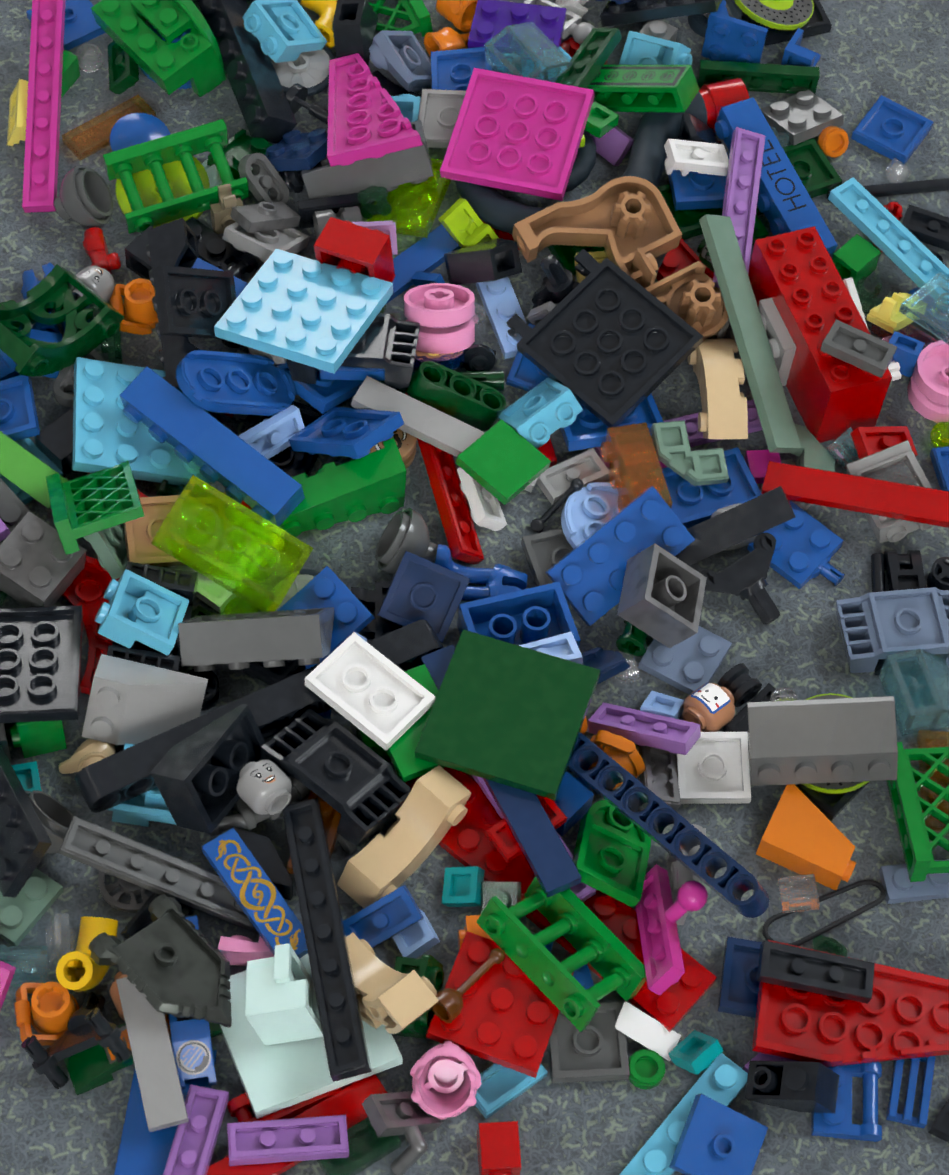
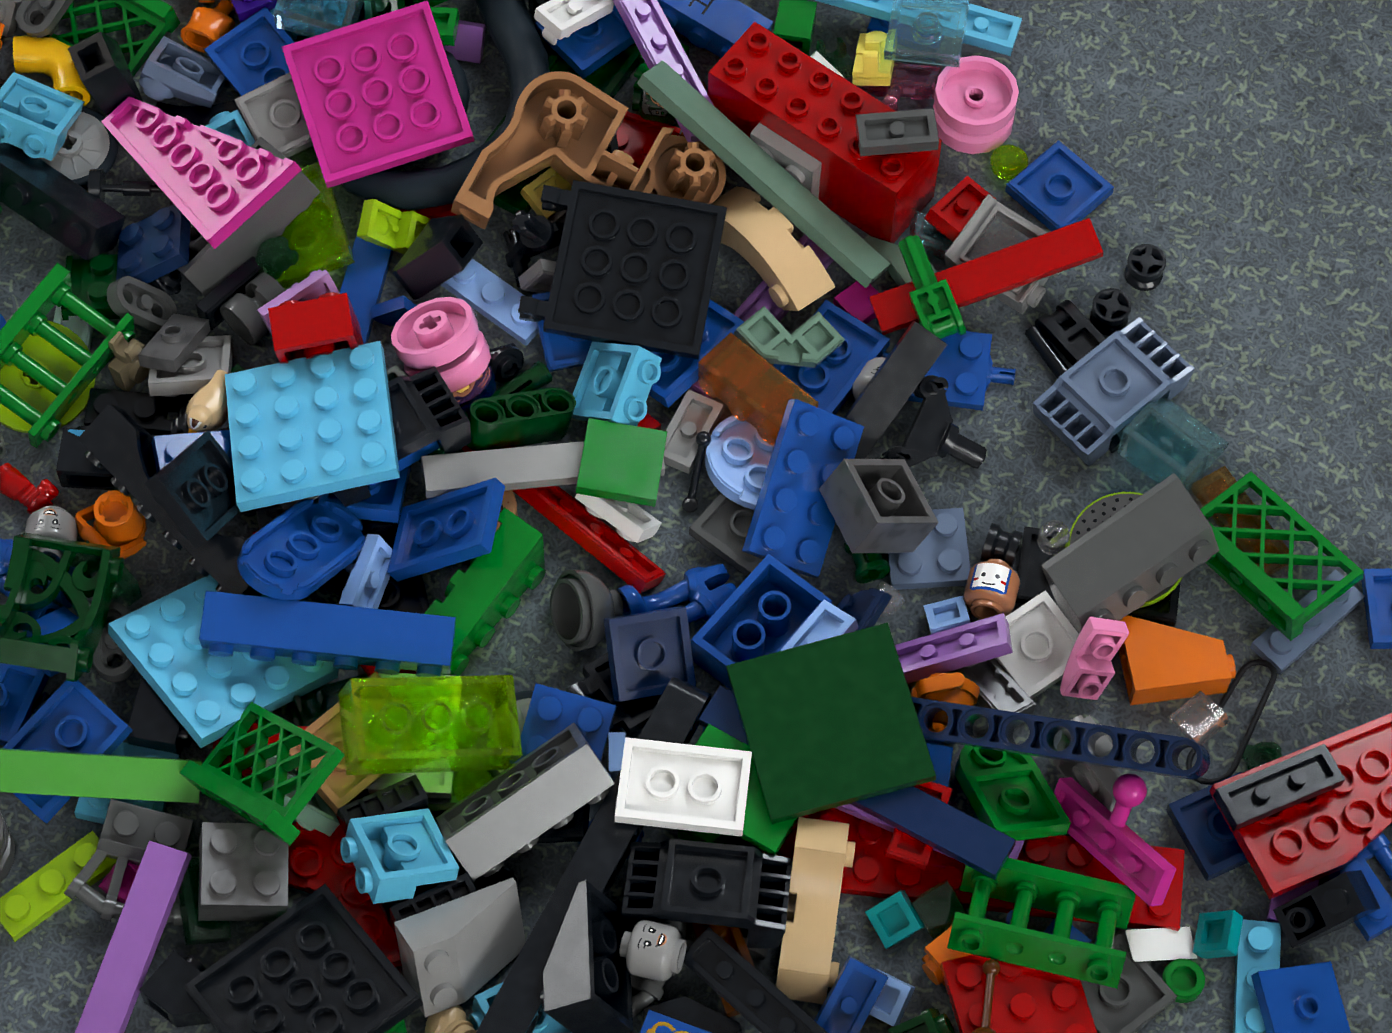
camera: 30 degrees left, 5 degrees up
(249, 262) = (208, 405): none -> tan animal
(745, 798) = (1090, 662): none -> bright pink slope
(812, 486) = (930, 299): none -> green connector
(907, 352) = (918, 96): blue panel -> none

